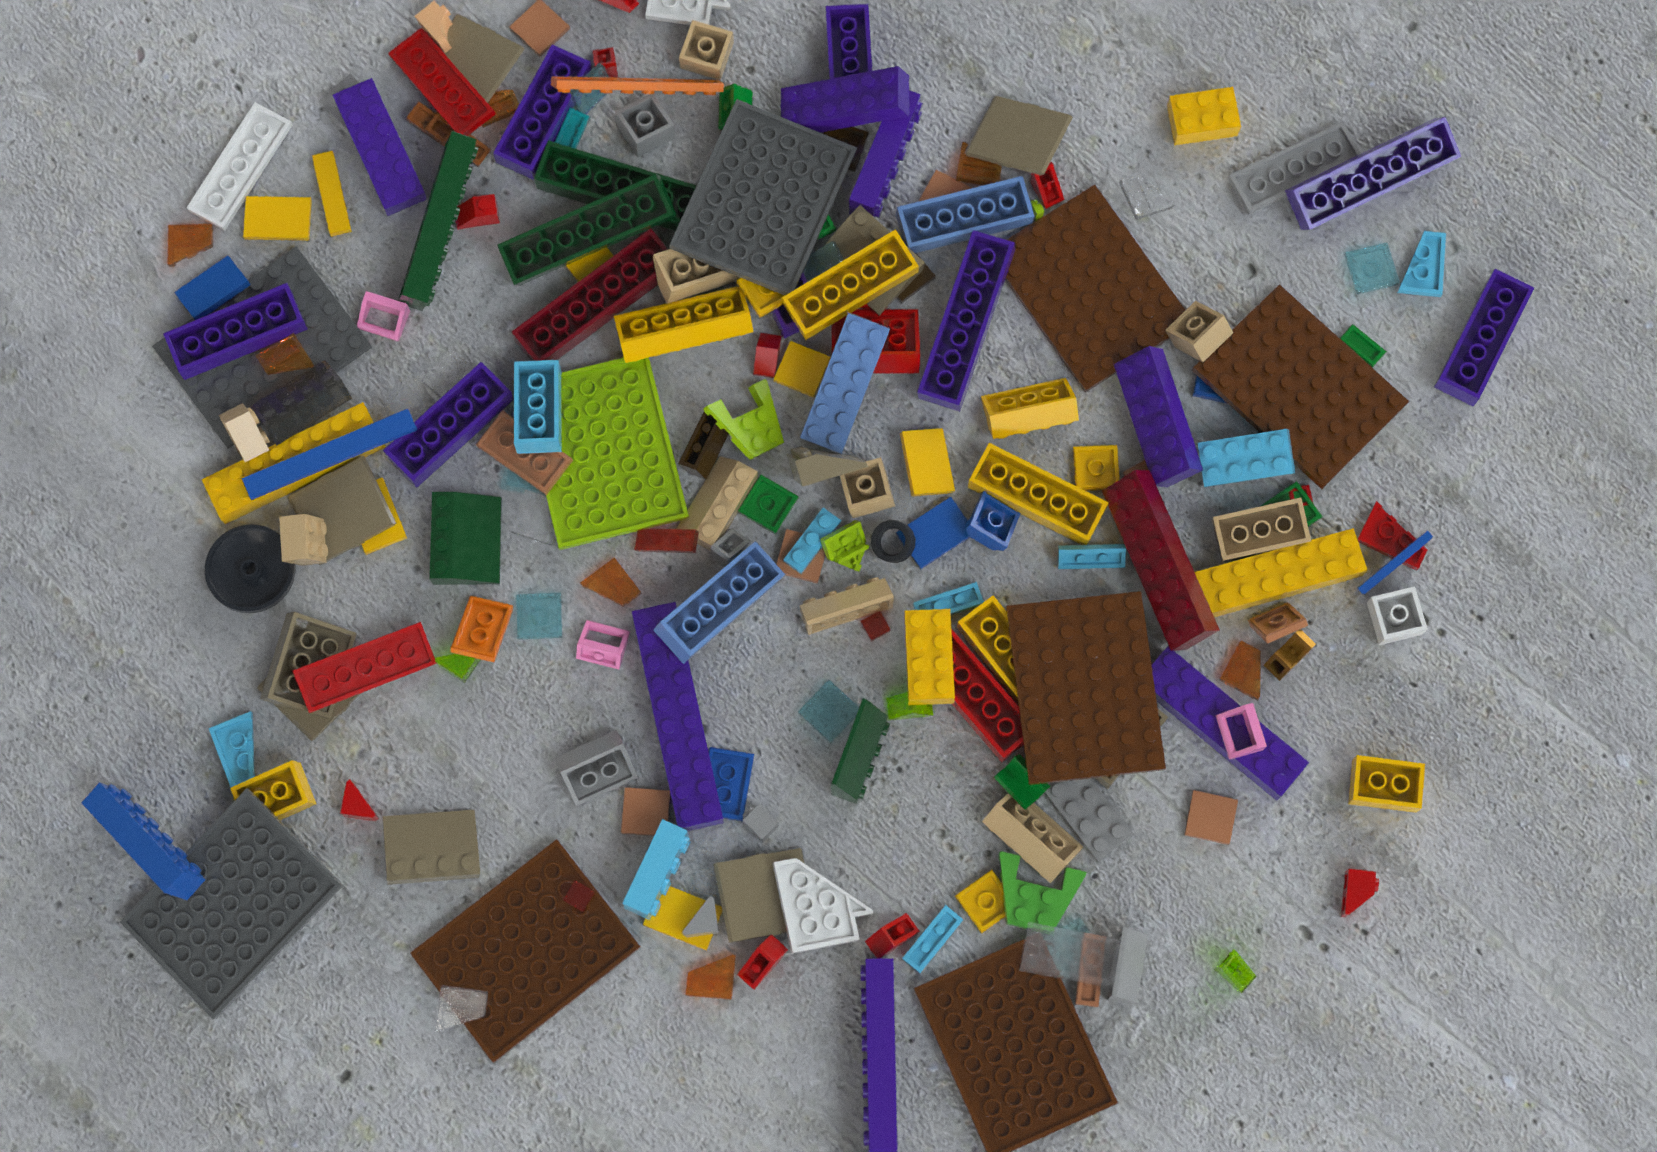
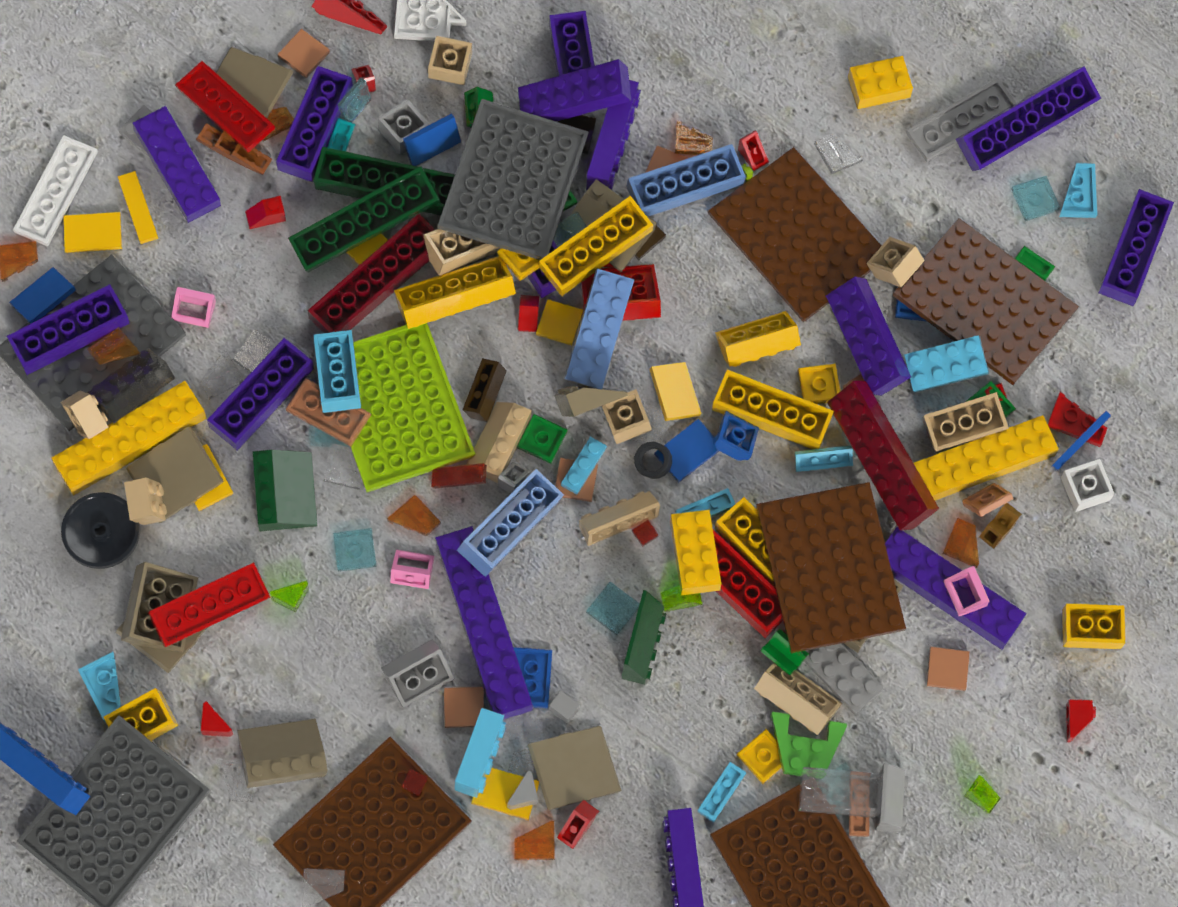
camera: 10 degrees left, 5 degrees down
(329, 454) = (161, 426): blue tile -> none
(436, 23) = (214, 55): light nougat arch -> none
(437, 221) = (234, 222): dark green brick -> none
(482, 629) = (307, 564): orange tile -> none
(628, 85) = (386, 95): orange plate -> none
(675, 142) = (432, 140): none -> blue tile
(753, 431) = (524, 377): lime wing -> none
(814, 908) = (618, 774): white wing -> none
(846, 545) = (613, 467): lime slope -> none
(892, 936) = (686, 792): red slope -> none
(966, 320) = (696, 269): dark purple brick -> none
(1018, 135) = (724, 110): dark tan piece -> none

